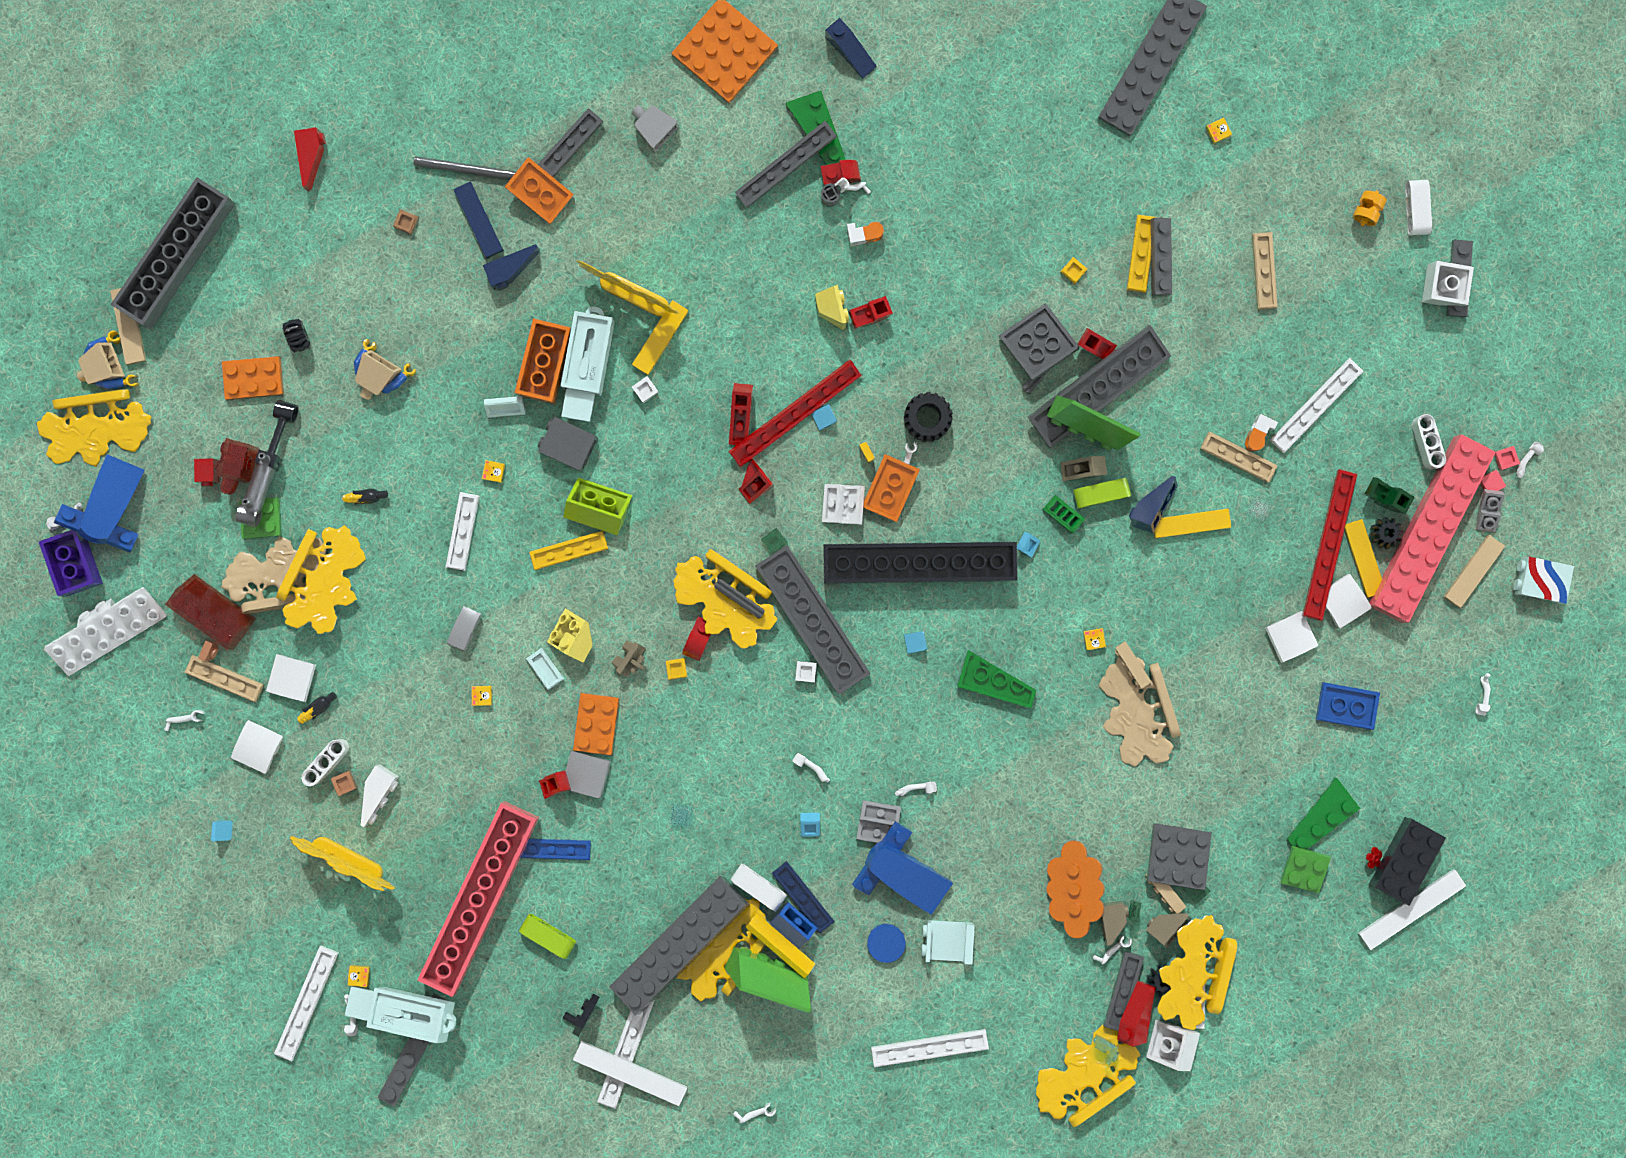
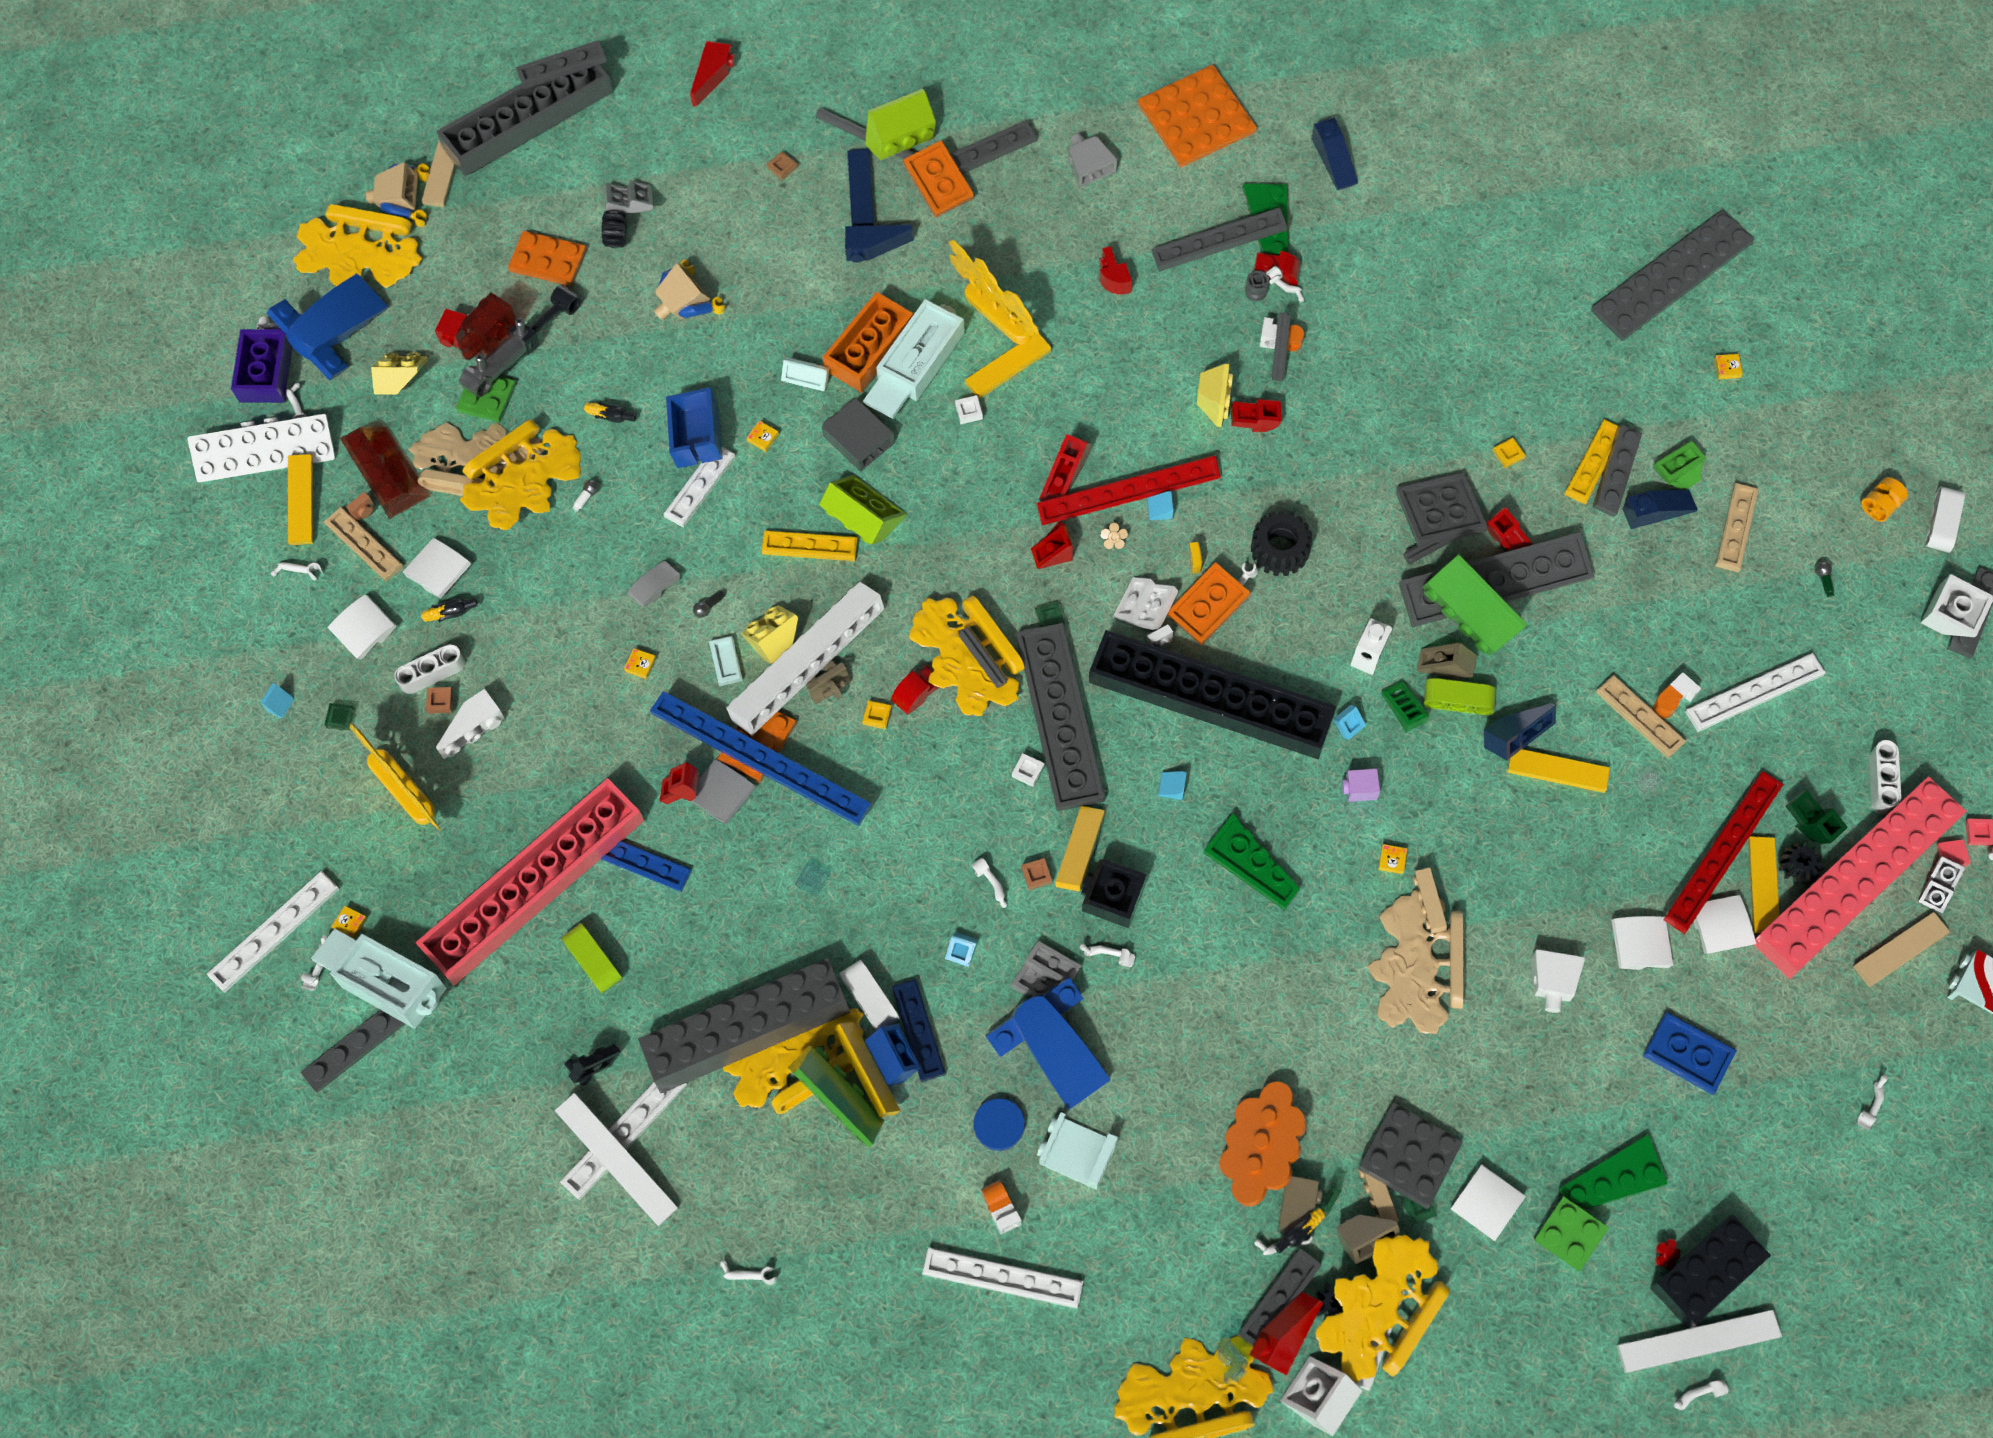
camera: 25 degrees right, 20 degrees down
(111, 580) = (294, 401): none -> white piece
(157, 662) = (300, 499): none -> yellow tile
(180, 526) = (395, 371): none -> light yellow slope
(185, 204) = (561, 64): none -> dark grey plate
(274, 823) = (339, 716): none -> clear green tile
(295, 302) = (628, 200): none -> light grey slope
(378, 567) = (590, 488): none -> piece
(438, 490) = (694, 427): none -> blue piece
(489, 156) = (900, 125): none -> lime slope
(509, 634) = (702, 608): none -> piece
(605, 741) = (761, 758): none -> blue plate
(606, 648) = (805, 658): none -> white brick
(714, 229) = (1114, 276): none -> red brick
(798, 456) = (1114, 536): none -> tan plant
(842, 750) = (1036, 874): none -> nougat plate
(865, 530) = (1161, 638): none -> white plate
(868, 721) = (1080, 848): none -> yellow tile
(869, 246) = (1281, 345): none -> dark grey axle
(894, 753) = (1107, 879): none -> black hinge
(910, 1002) = (1001, 1207): none -> leg
(1024, 477) = (1372, 642): none -> white torso
(1053, 592) = (1361, 785): none -> lavender brick
(1122, 941) = (1298, 1231): none -> black piece
(1202, 276) = (1657, 506): none -> dark blue slope
(1209, 235) = (1682, 466): none -> bright green slope
(1239, 687) = (1555, 977): none -> white torso
(1242, 868) = (1488, 1202): none -> white slope
(1340, 285) = (1824, 572): none -> piece
(1433, 936) = (1717, 1387): none -> white piece

